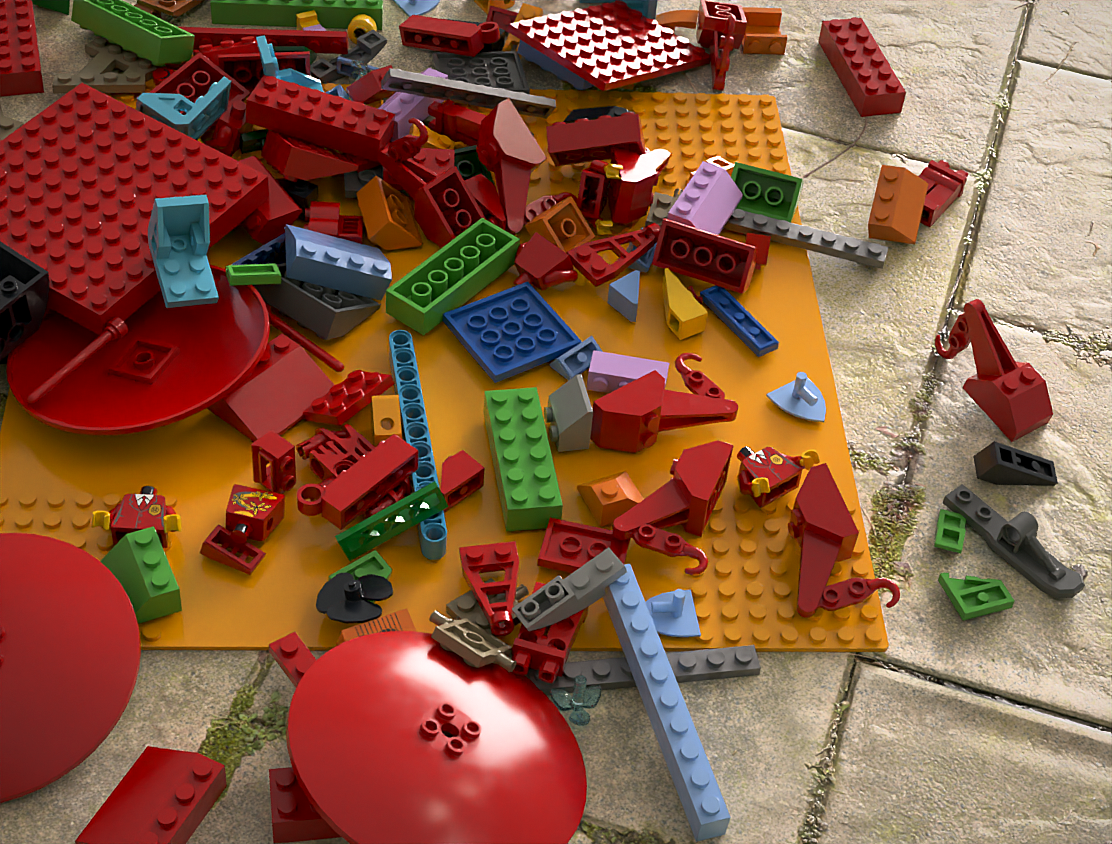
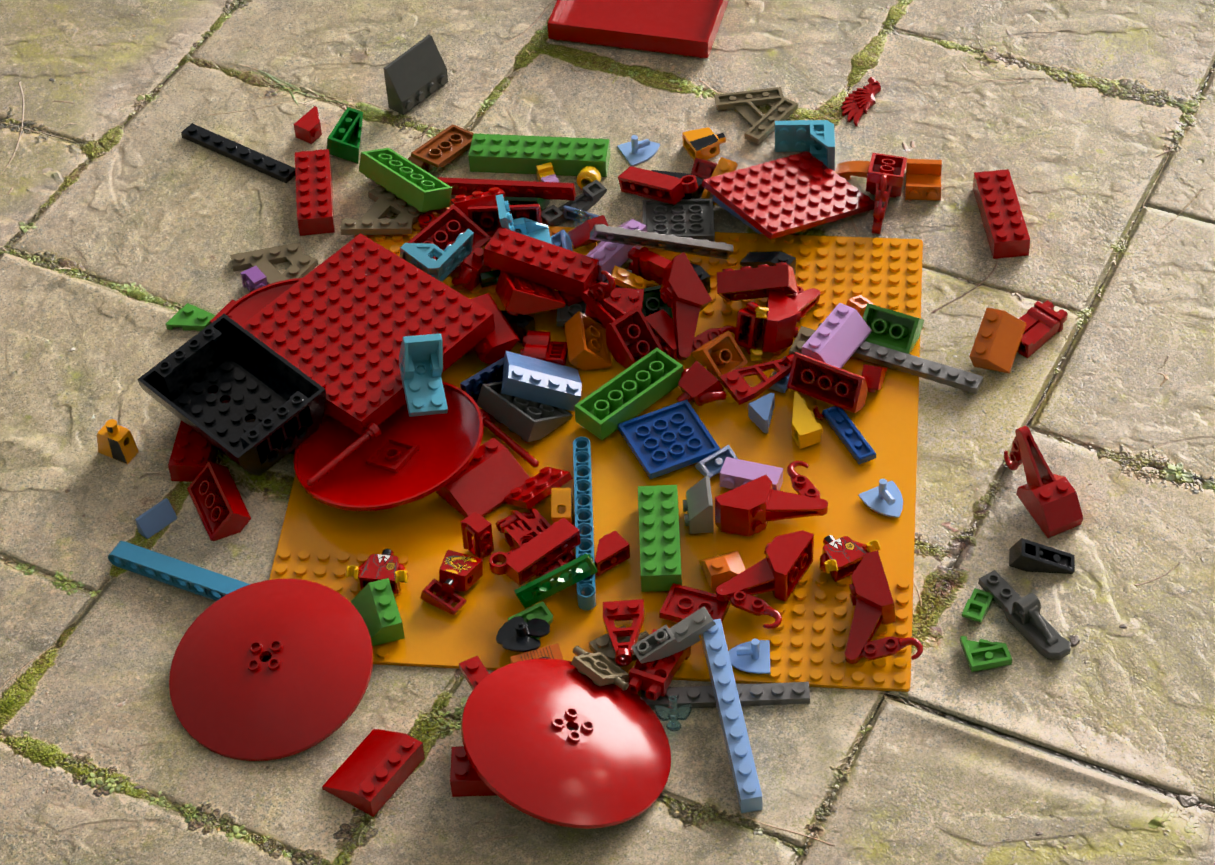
camera: 15 degrees right, 0 degrees up
(253, 274) = (475, 391): bright green tile -> none

